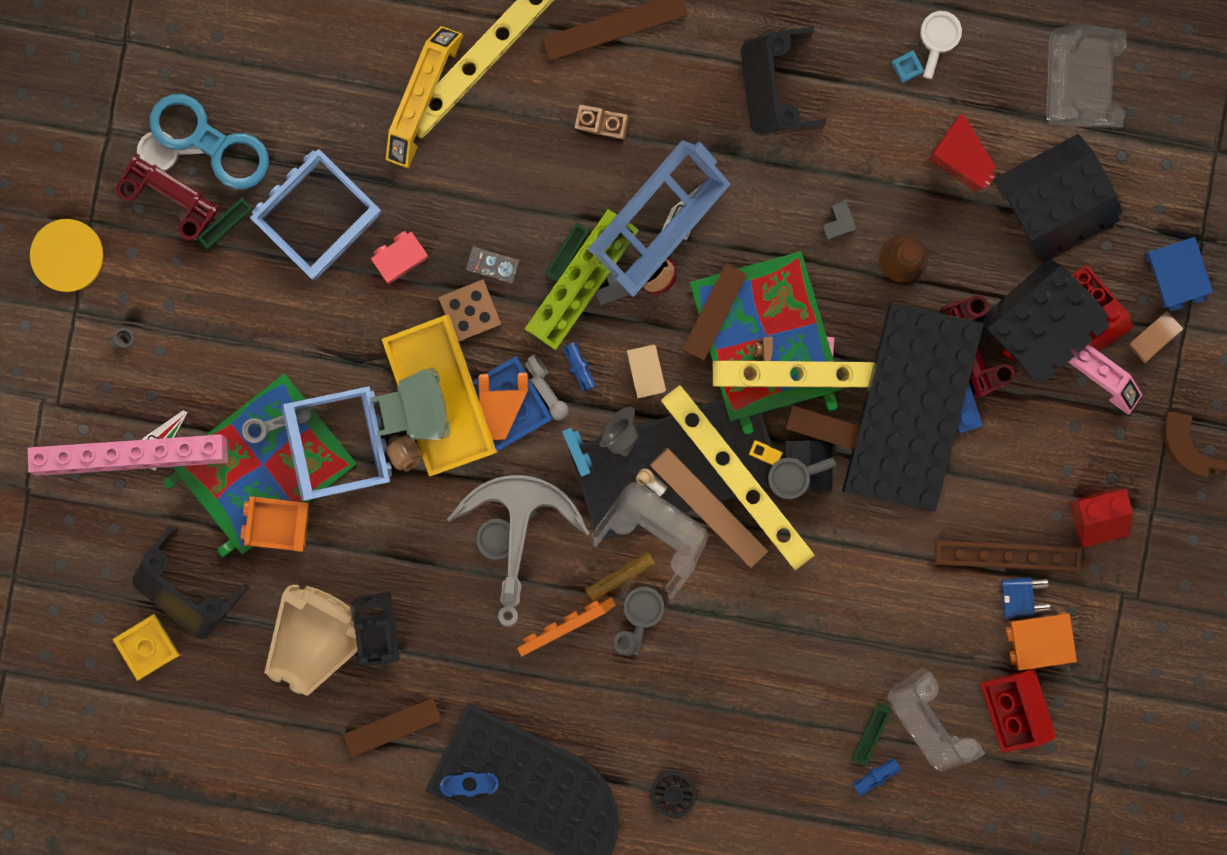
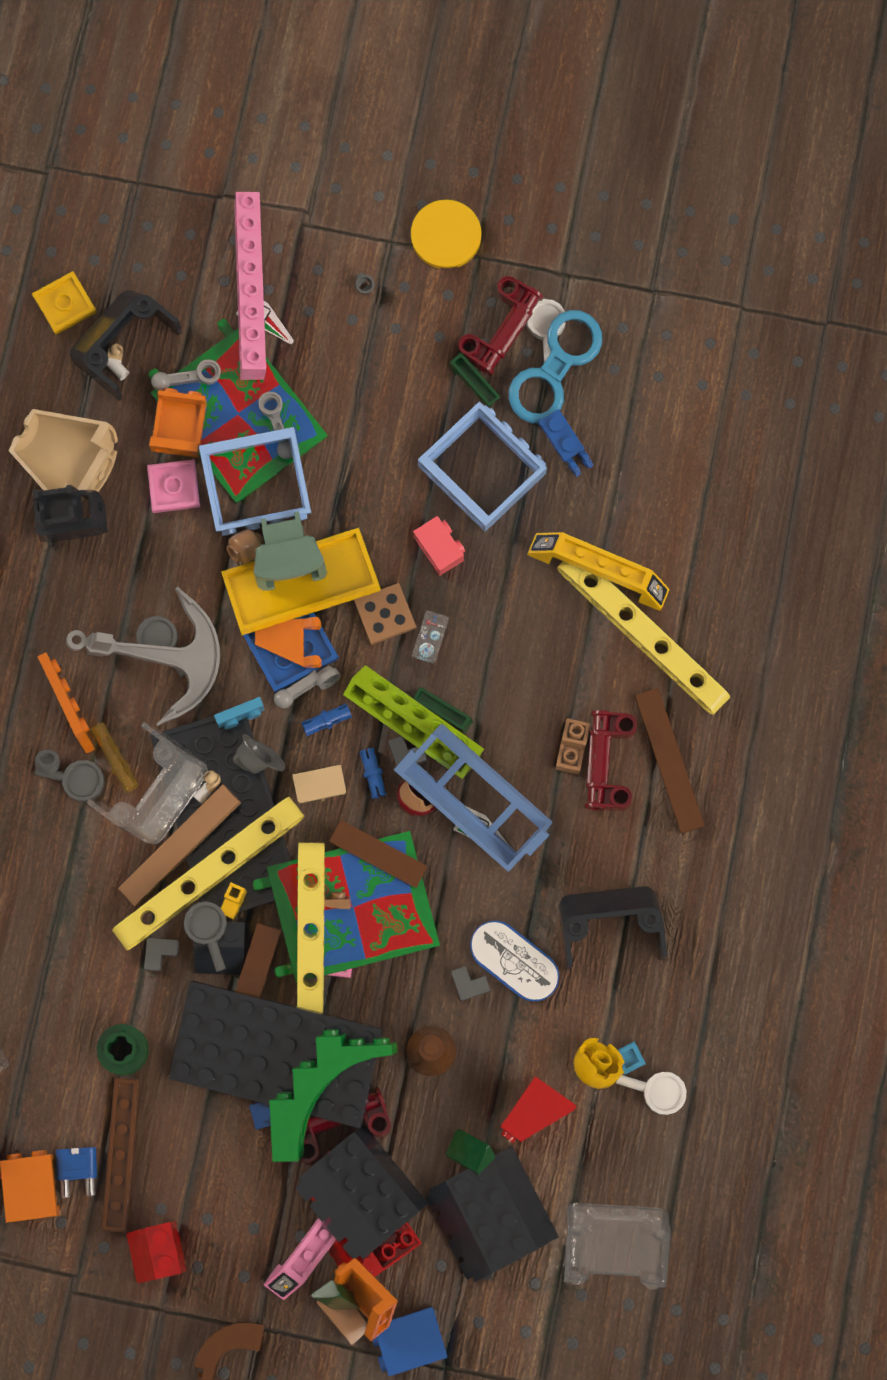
camera: 90 degrees right, 10 degrees down
(201, 592) = (115, 355): none -> arm
(232, 542) = (162, 380): none -> light grey piece
(287, 131) = (564, 441): none -> blue hinge
(339, 527) = (173, 486): none -> bright pink tile
(616, 95) = (599, 760): none -> dark red piece
(632, 319) = (373, 773): none -> blue pin
(810, 528) = (156, 950): none -> dark grey piece
(815, 178) = (514, 961): none -> white tile
(901, 543) = (112, 1037): none -> dark green piece
(916, 94) = (598, 1064): none -> yellow cylinder
(940, 370) = (291, 1113): none -> green arch
(1003, 218) = (470, 1152): none -> dark green slope
(1141, 313) = (370, 1294): none -> orange panel
(1143, 341) = (336, 1297): none -> slope

